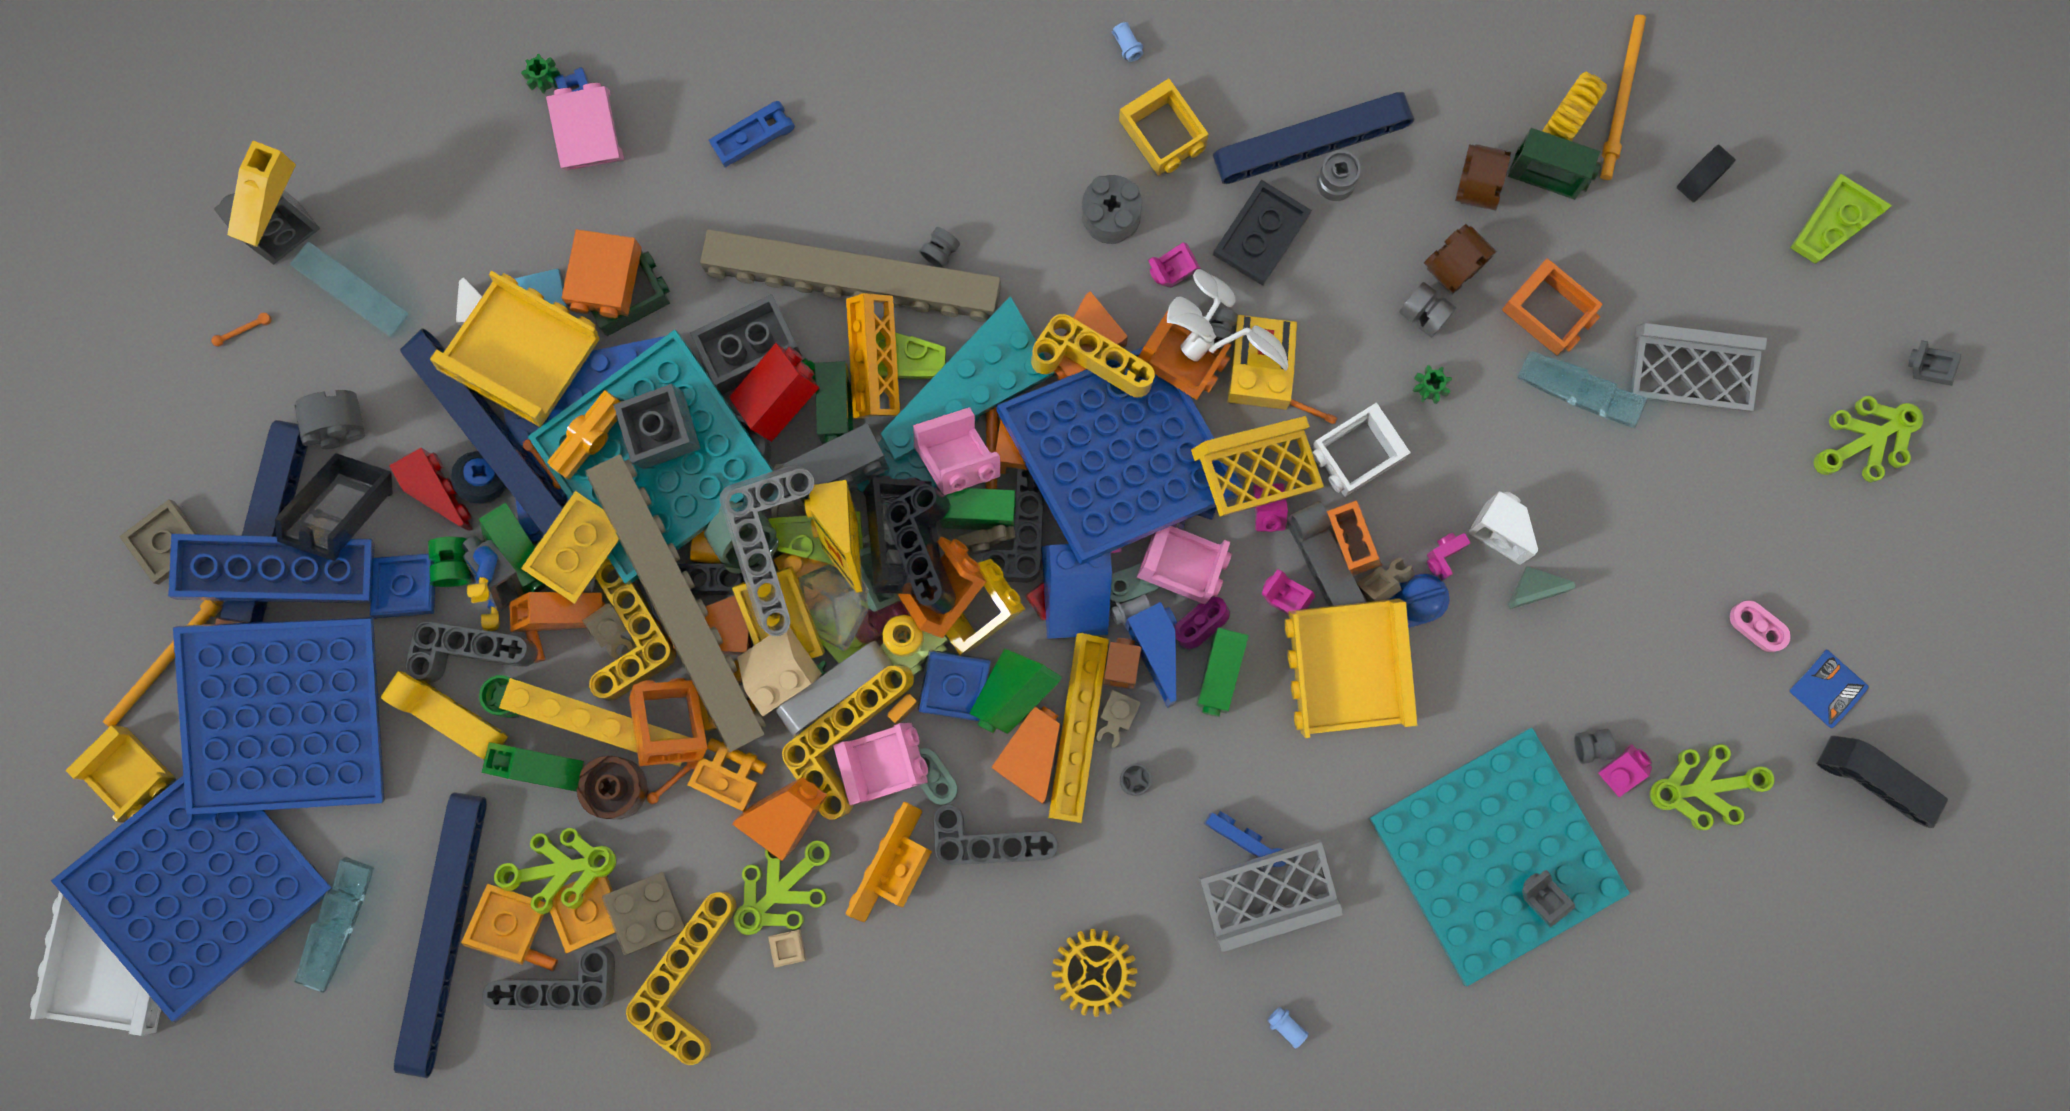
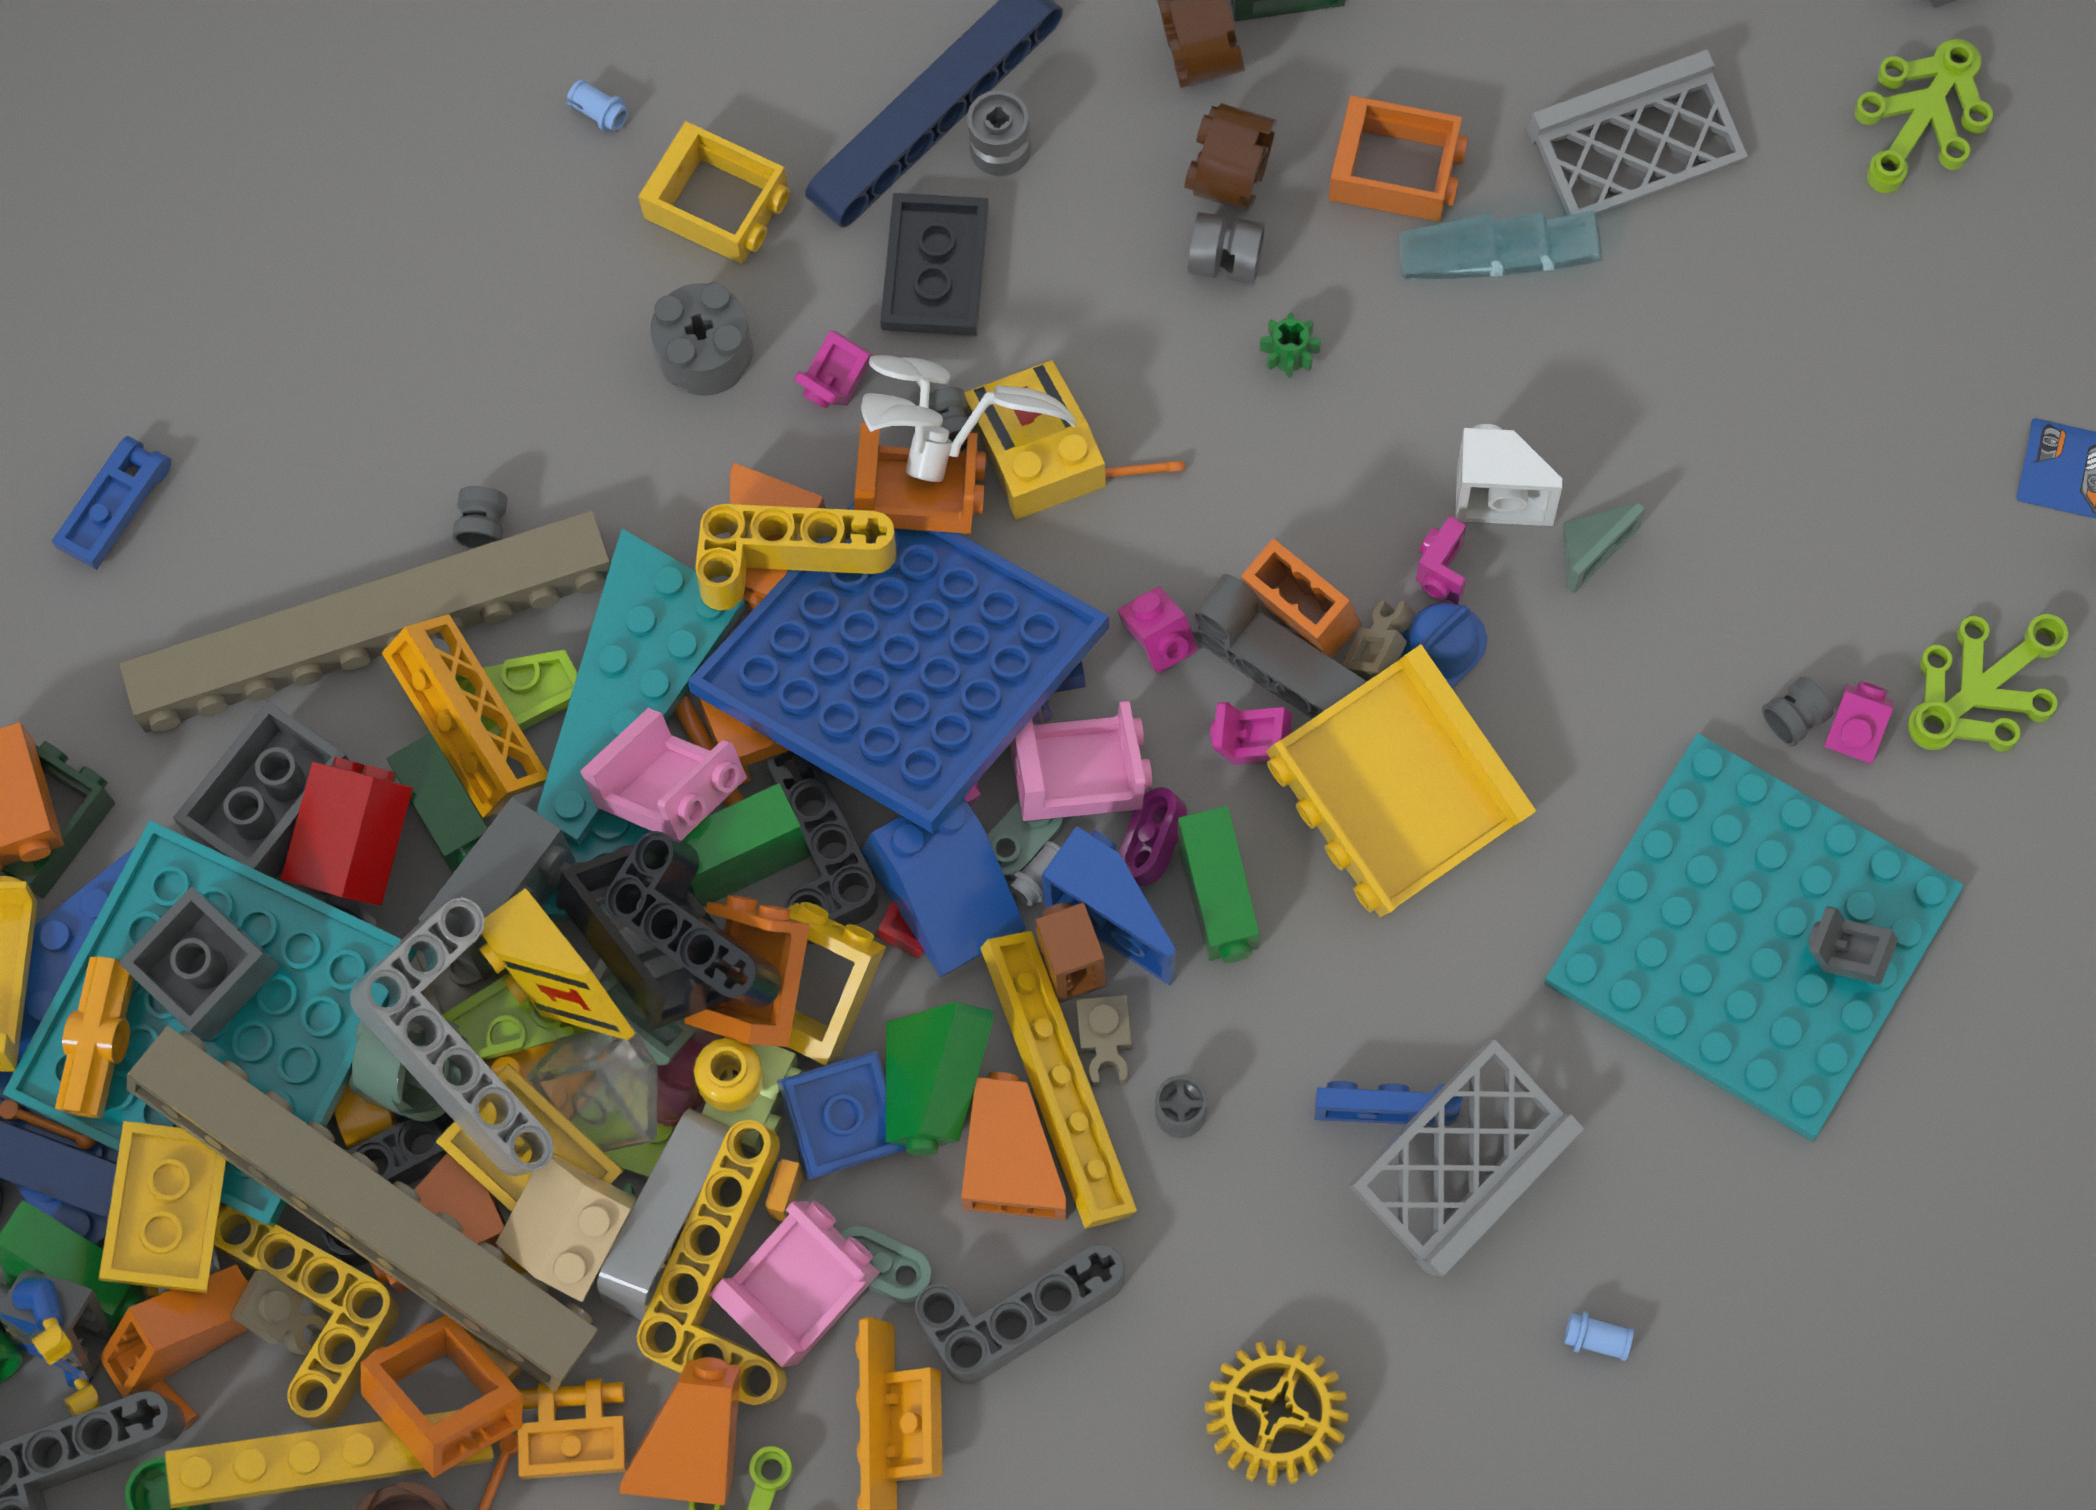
camera: 30 degrees left, 10 degrees down
(982, 539) = (773, 882): dark tan plate -> none
(1246, 443) = (1076, 550): yellow fence -> none
(1383, 432) = (1260, 443): white window -> none
(1758, 625) = (1923, 430): bright pink plate -> none

